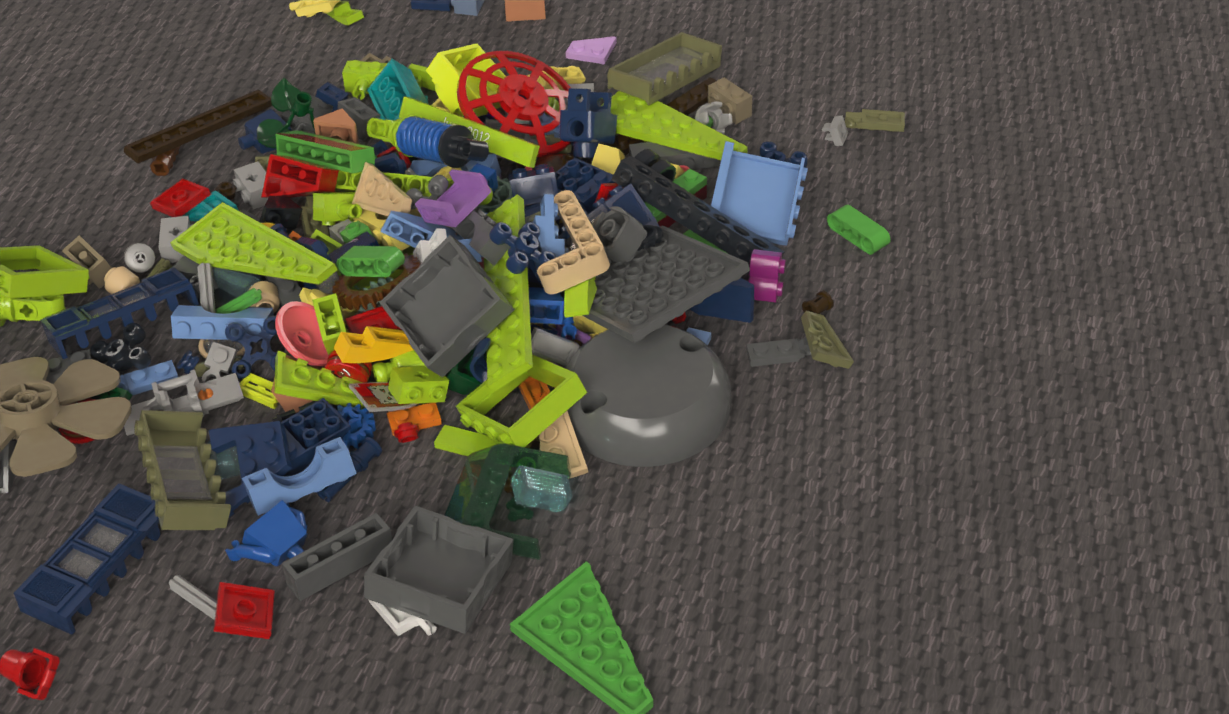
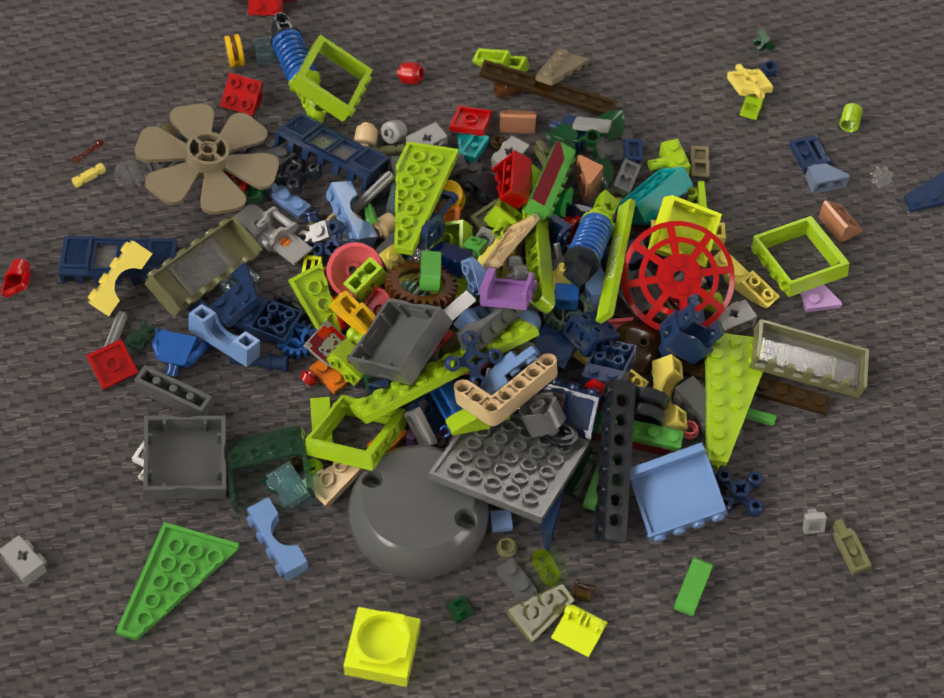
camera: 60 degrees right, 15 degrees up
(71, 222) = (410, 73): none -> red head
(84, 255) = (372, 105): dark tan brick -> none
(114, 159) = (501, 57): none -> lime slope
(141, 578) = (132, 257): none -> light yellow arch
(178, 109) = (560, 65): none -> dark tan wing
(215, 166) = (517, 121): none -> nougat slope
(219, 572) = (139, 338): none -> clear green plate
(278, 105) = (586, 124): none -> light grey tile
(550, 20) = (809, 227): none -> lime window
(573, 531) = (289, 559): none -> medium blue arch
(713, 110) = (765, 431): light grey piece -> none
(731, 345) = (506, 547): none -> olive plate
(733, 99) = (803, 424): dark tan brick -> none
(765, 275) = (585, 539): magenta brick -> none
(772, 325) = (549, 565): none -> clear neon green beam
(782, 405) = (460, 609): none -> dark green tile
(795, 475) = (382, 646): none -> neon yellow container
(858, 323) = (579, 630): none -> neon yellow hinge

